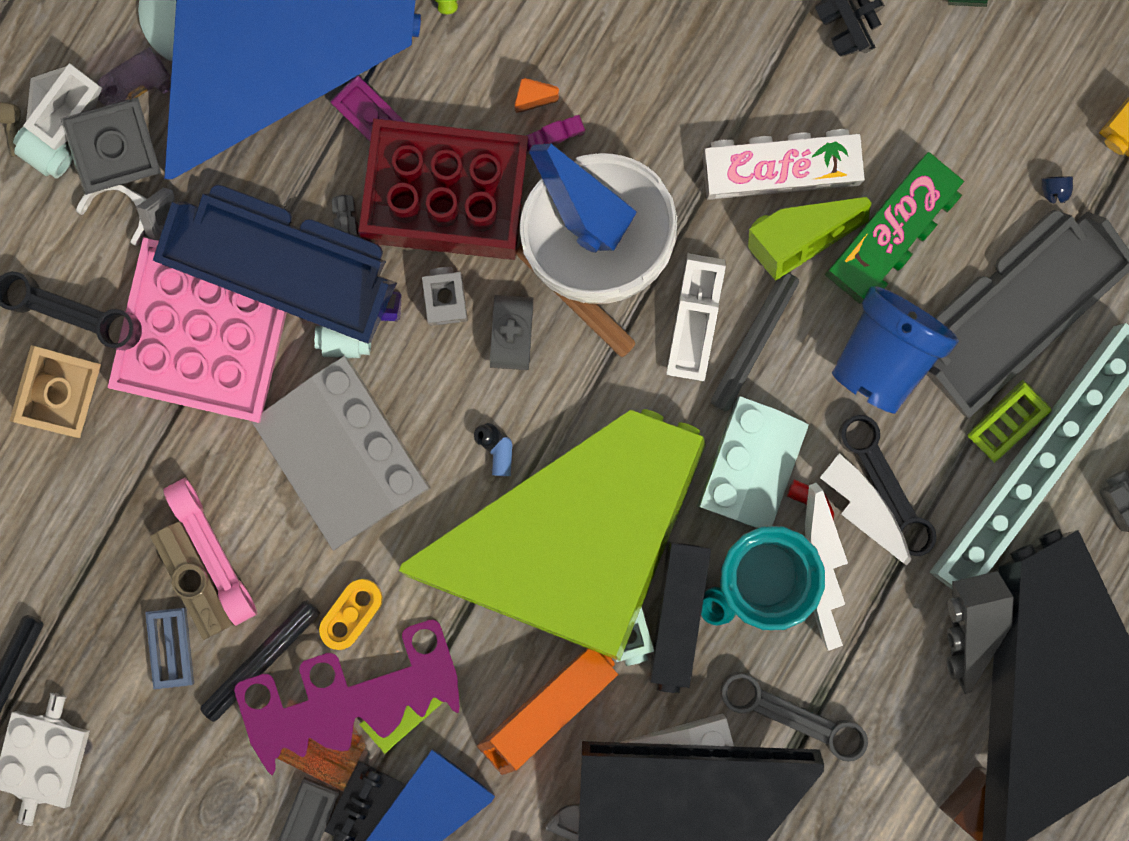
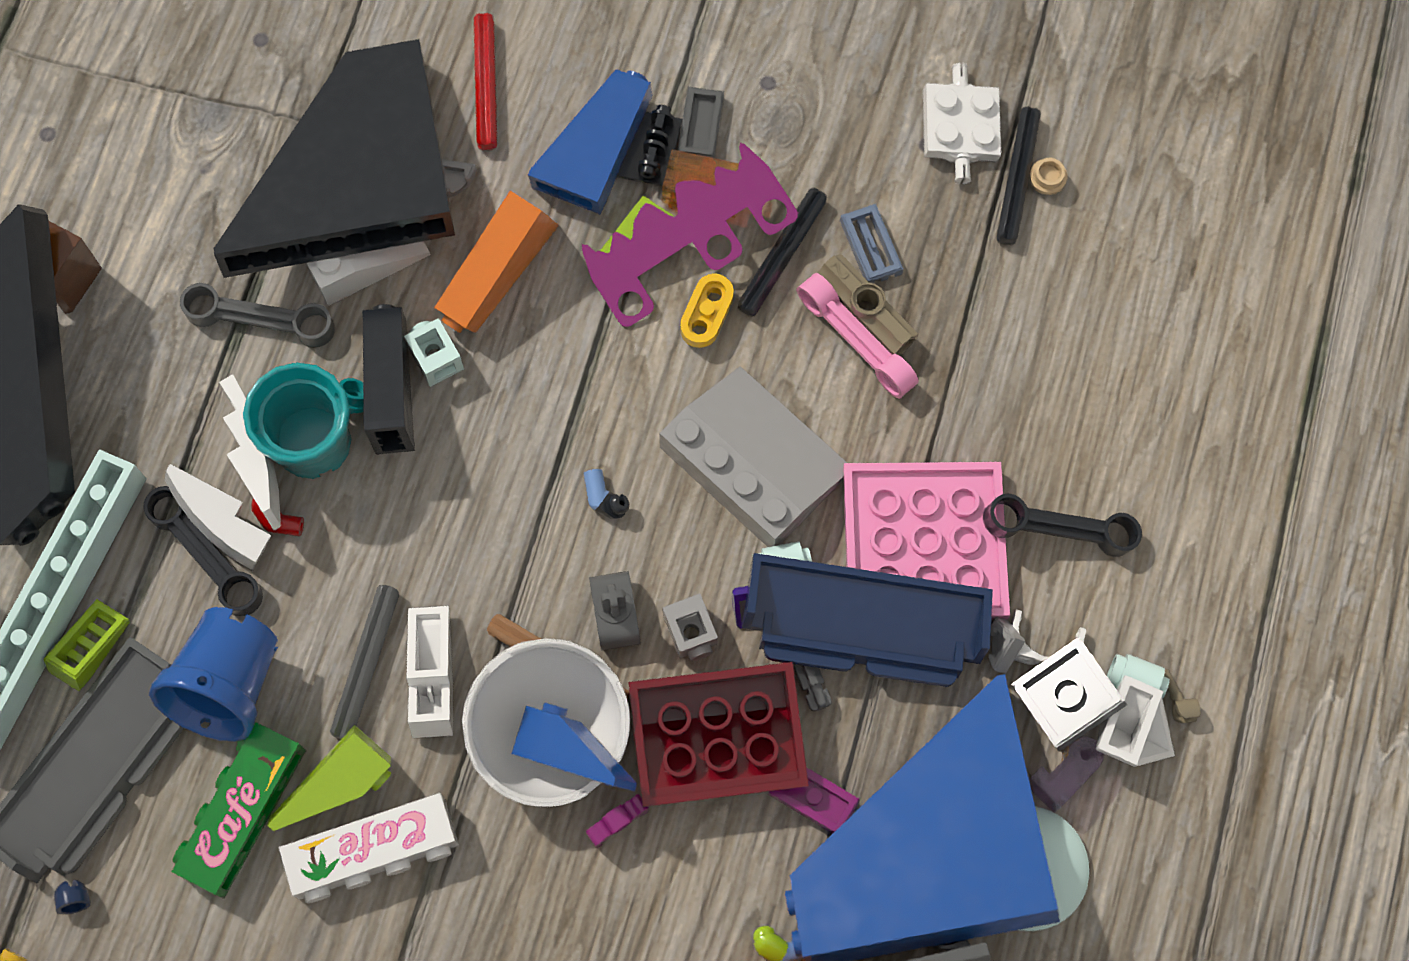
camera: 165 degrees right, 15 degrees down
(55, 392) = (1050, 447): tan slope -> none
(534, 95) = (647, 860): orange slope -> none
(575, 538) = (501, 422): lime slope -> none
(753, 464) = (344, 538): light aqua slope -> none
(980, 621) = (85, 425): dark grey slope -> none

